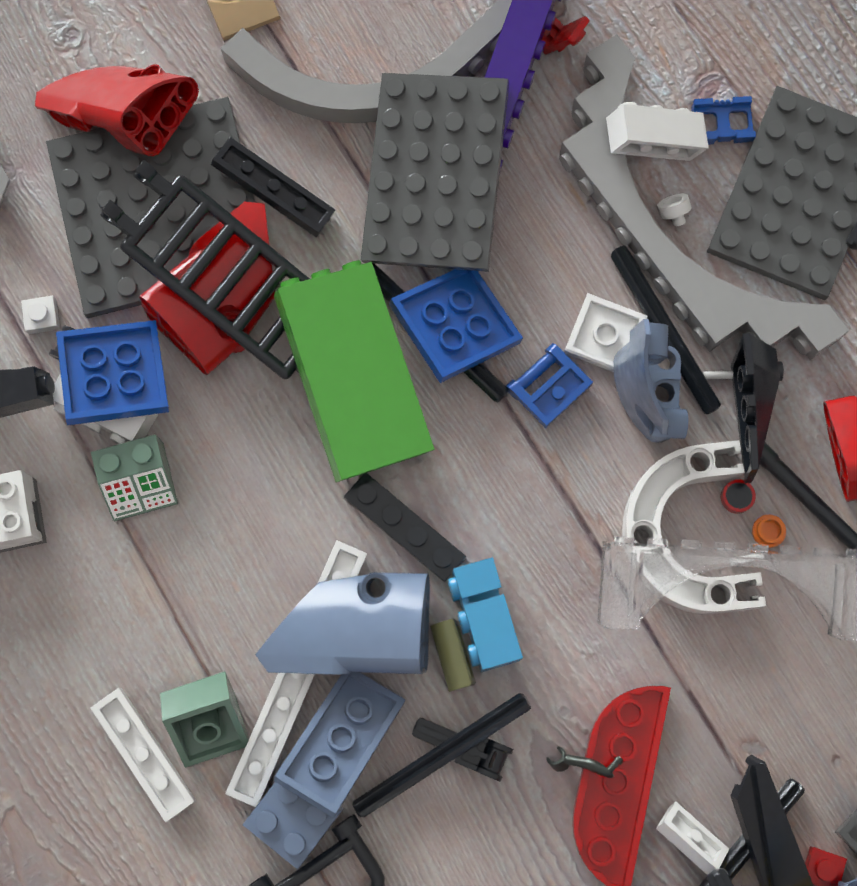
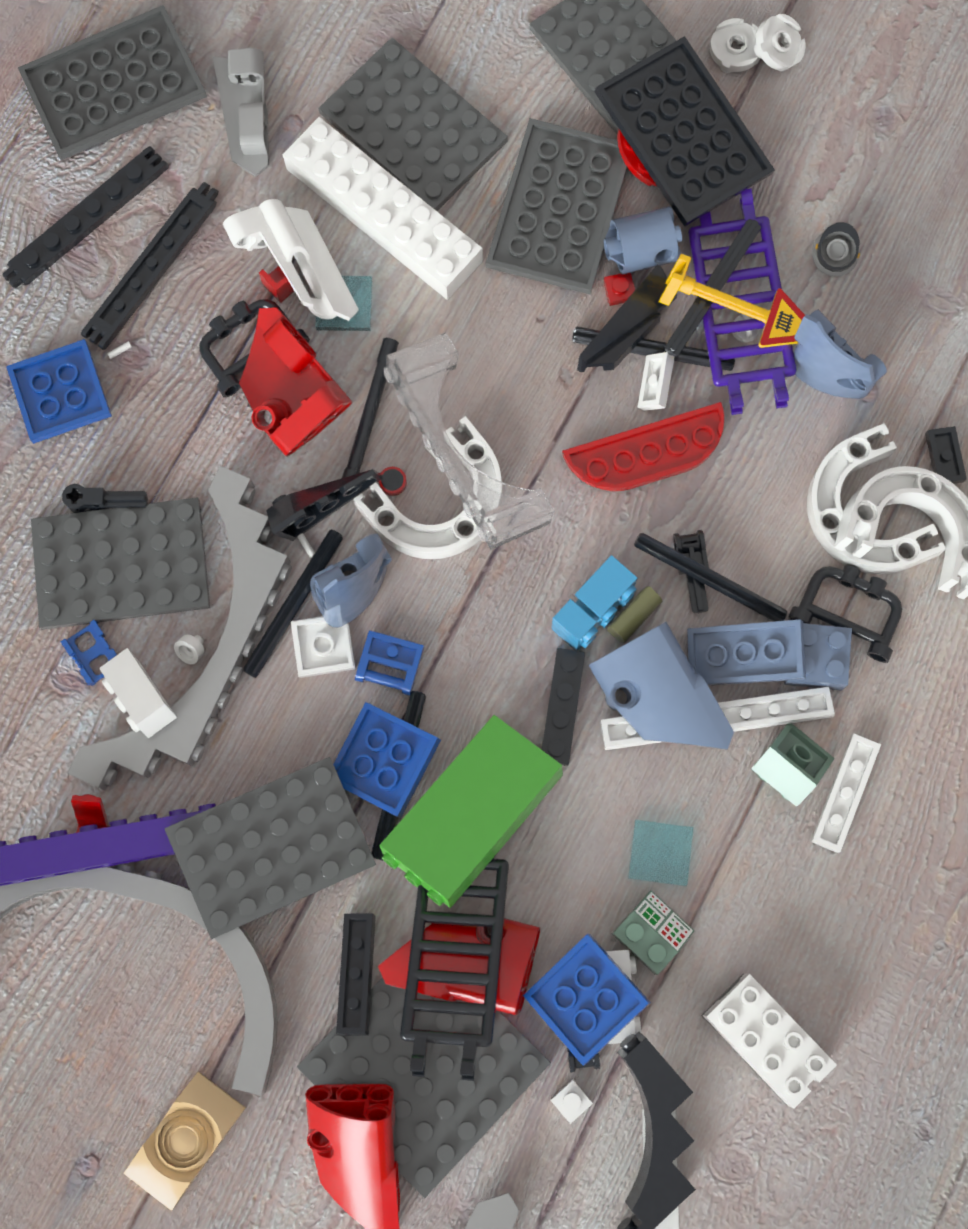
camera: 120 degrees left, 0 degrees up
(205, 534) = (660, 853): none -> clear light blue tile
(586, 763) = (651, 475): pearl dark grey piece -> none
(769, 530) = (405, 445): orange plate -> none

